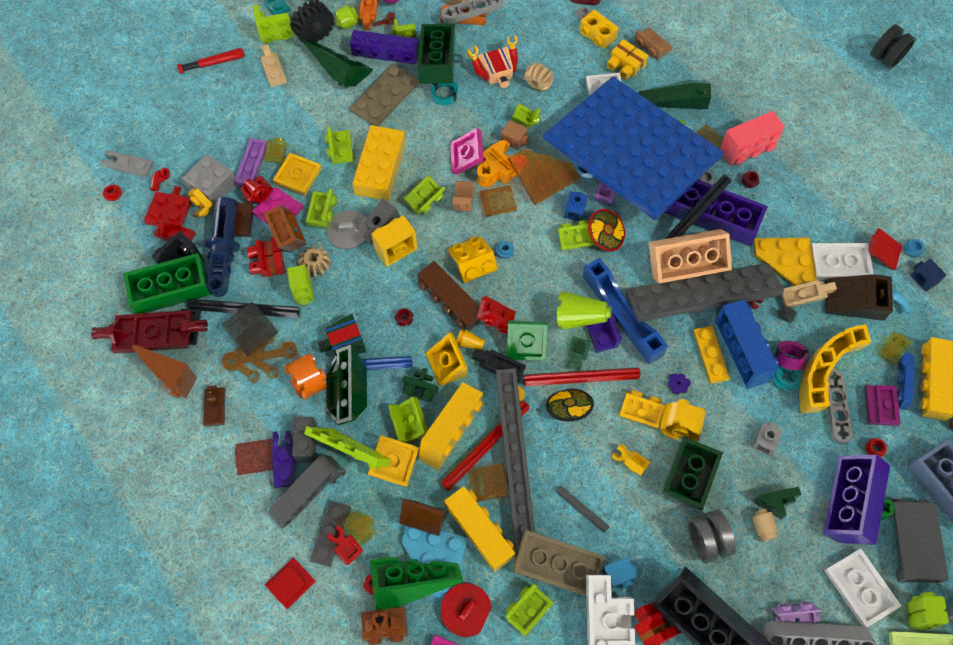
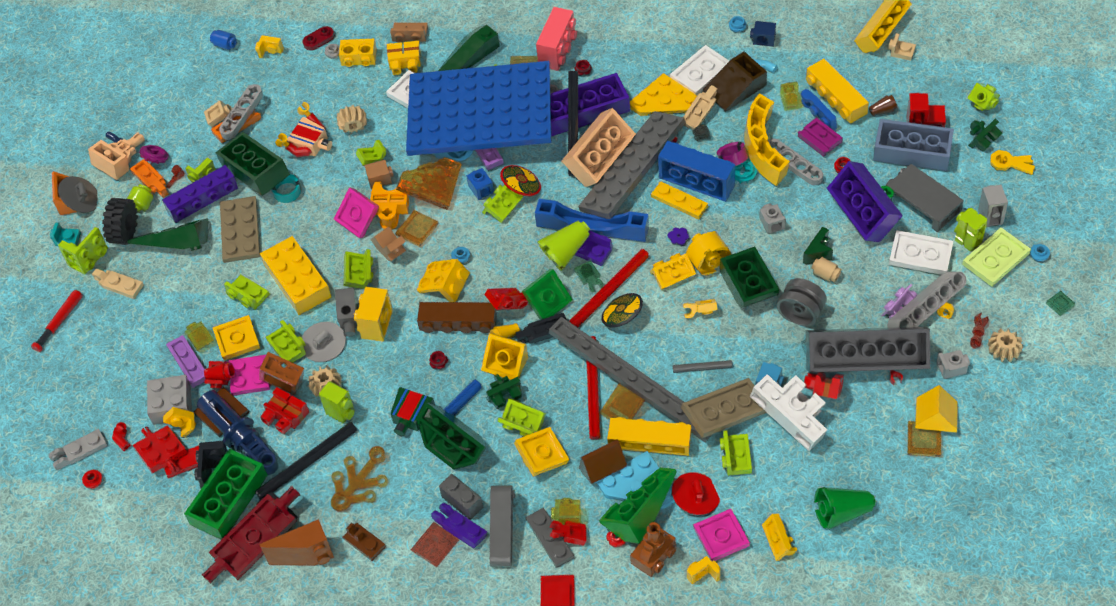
camera: 40 degrees left, 10 degrees down
(249, 328) = (330, 465): clear smoke slope -> none
(305, 376) = (414, 456): orange brick -> none
(348, 445) = (498, 467): lime wing -> none
(450, 426) = (557, 395): yellow wedge -> none
(885, 249) = (720, 39): red piece -> none

